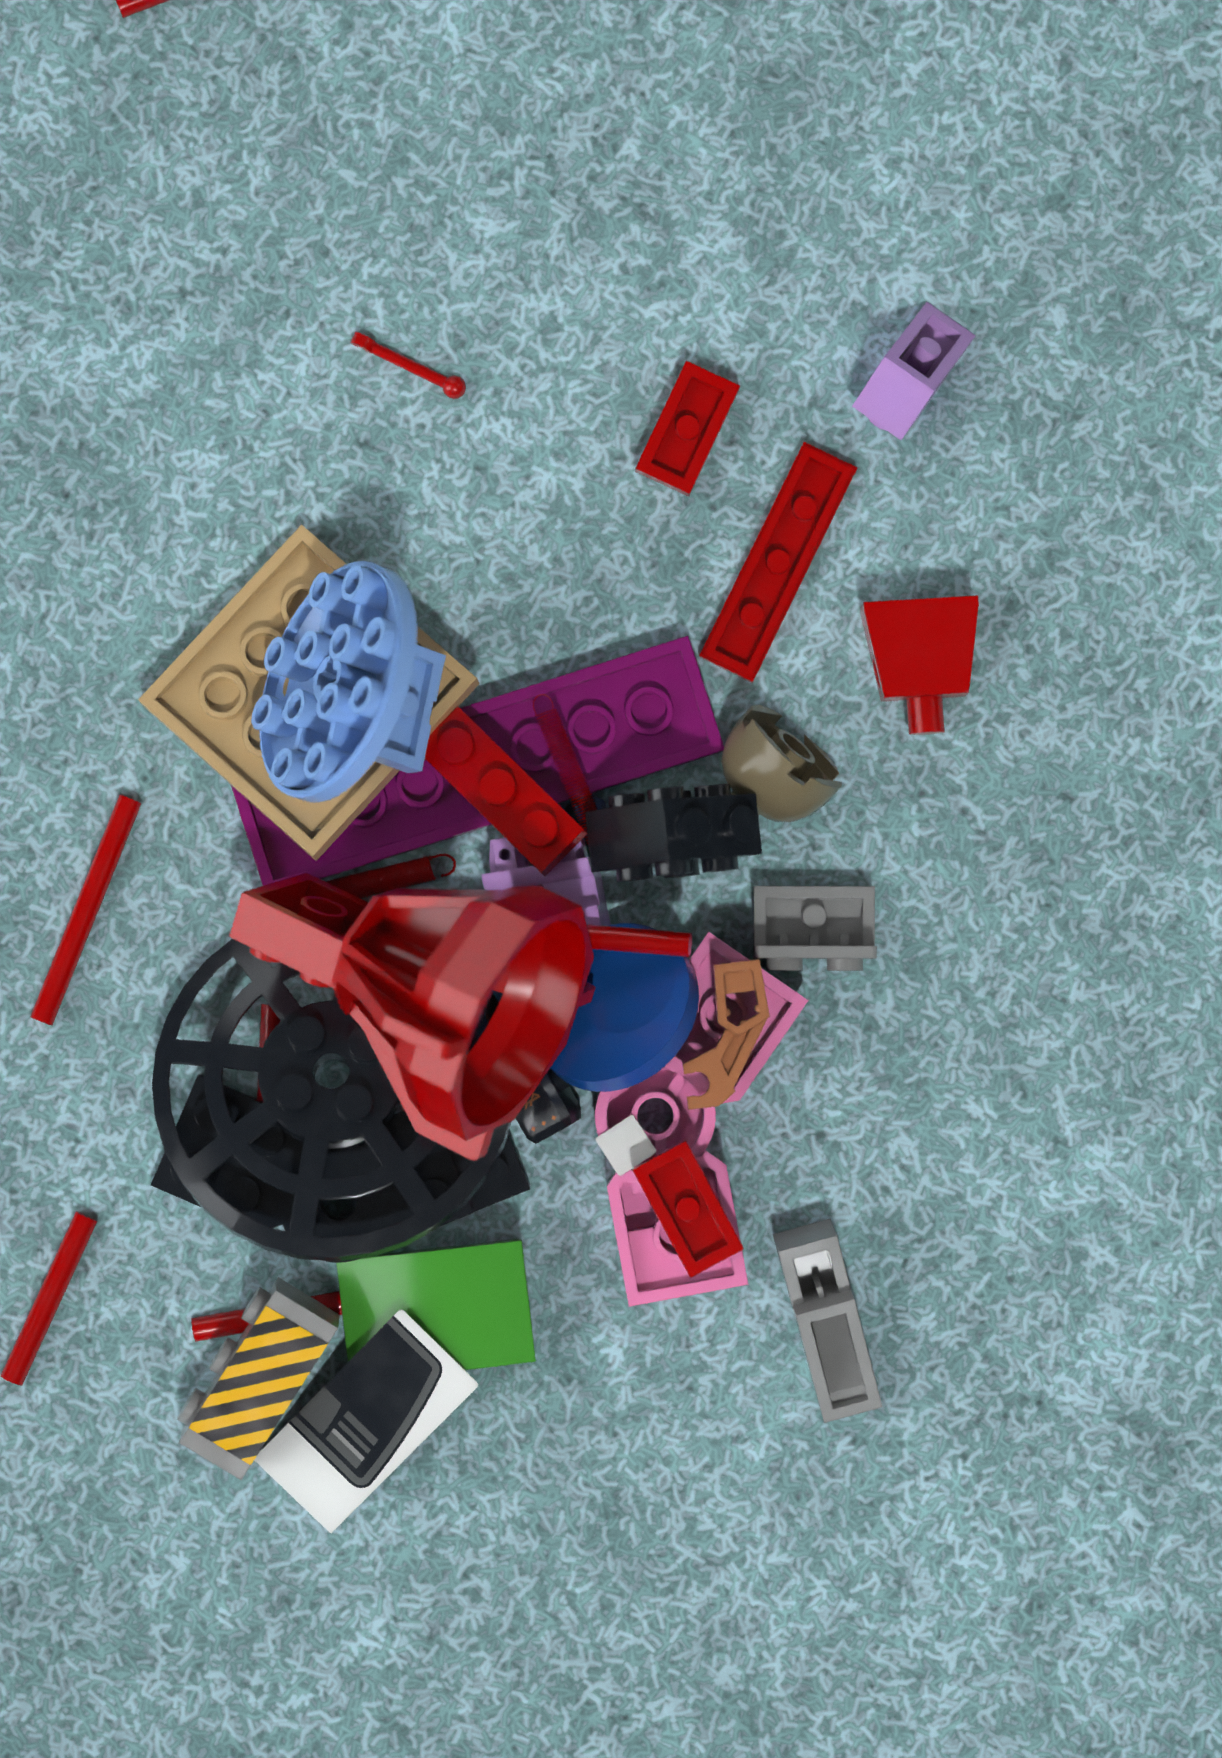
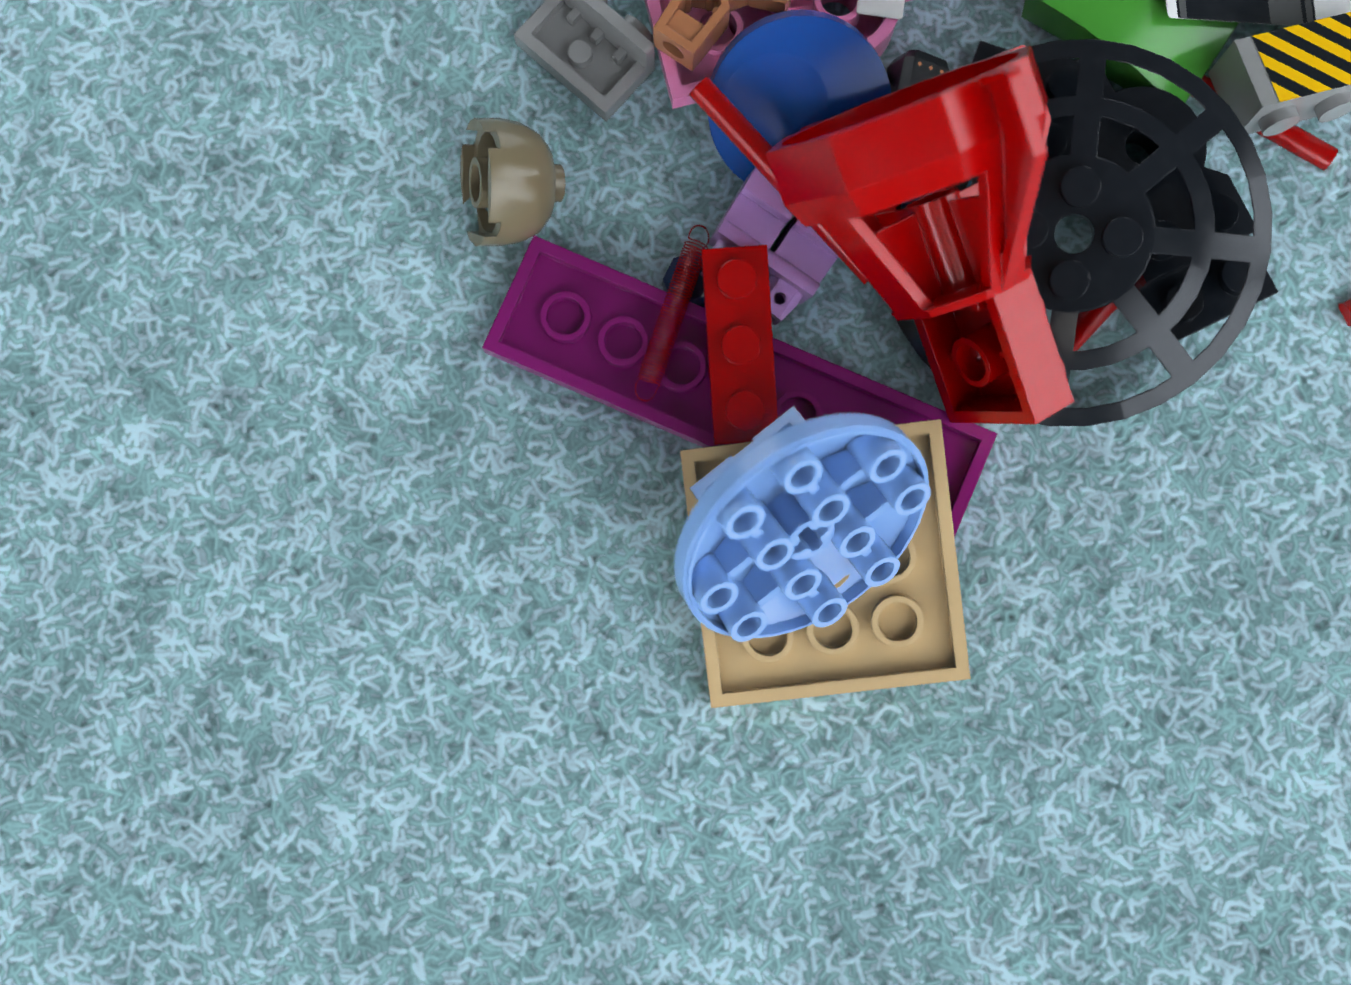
camera: 140 degrees left, 5 degrees down
(85, 910) = (1148, 552): red bar -> none
(390, 877) = (887, 370): red piece -> none
(452, 386) = (489, 715): red hinge -> none
(673, 832) = (632, 187): black brick -> none
(687, 428) = (334, 513): red plate -> none
(778, 562) = (360, 349): red tile -> none
(913, 371) = (118, 398): lavender slope -> none
(922, 653) = (314, 176): red torso -> none

